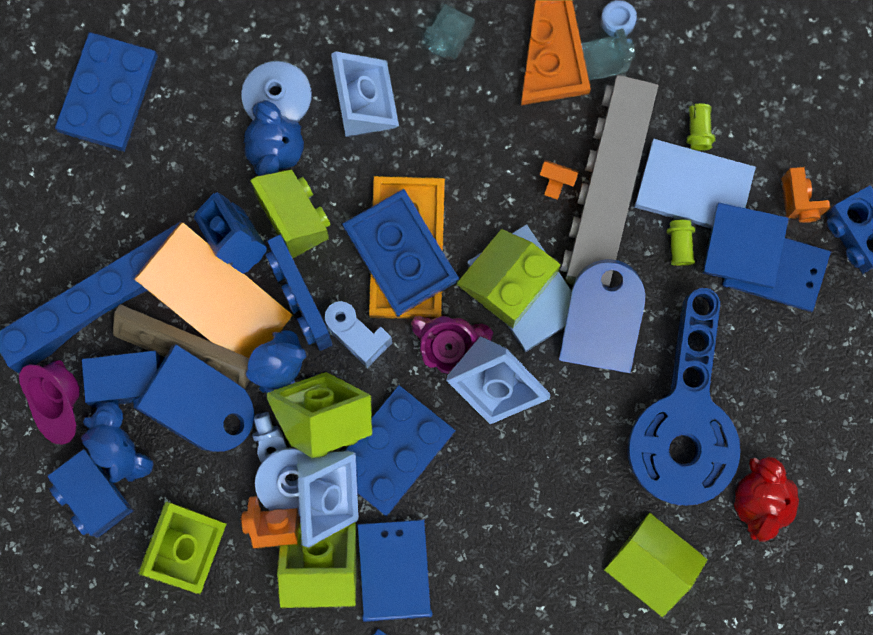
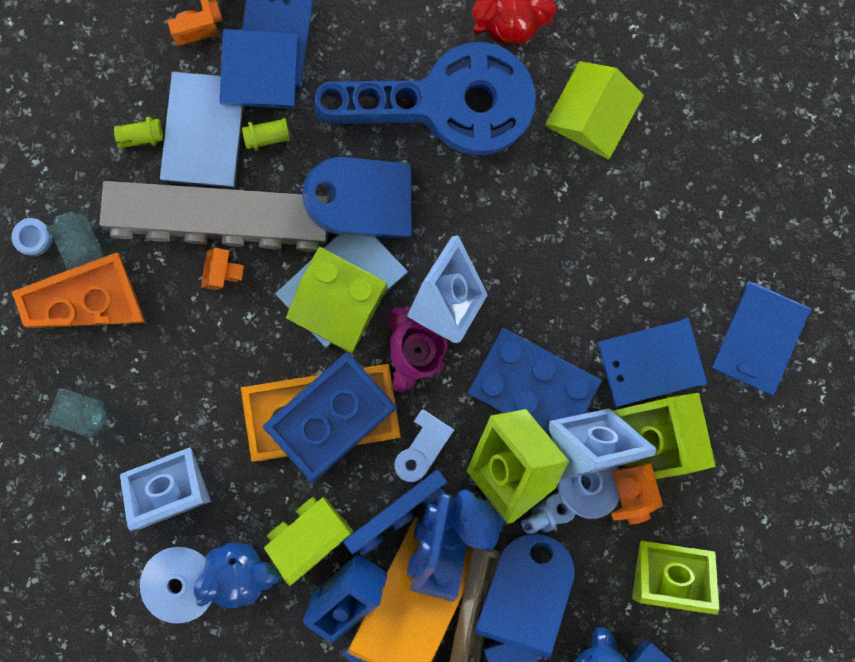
camera: 100 degrees left, 5 degrees up
(246, 323) = (439, 555): none -> blue bracket

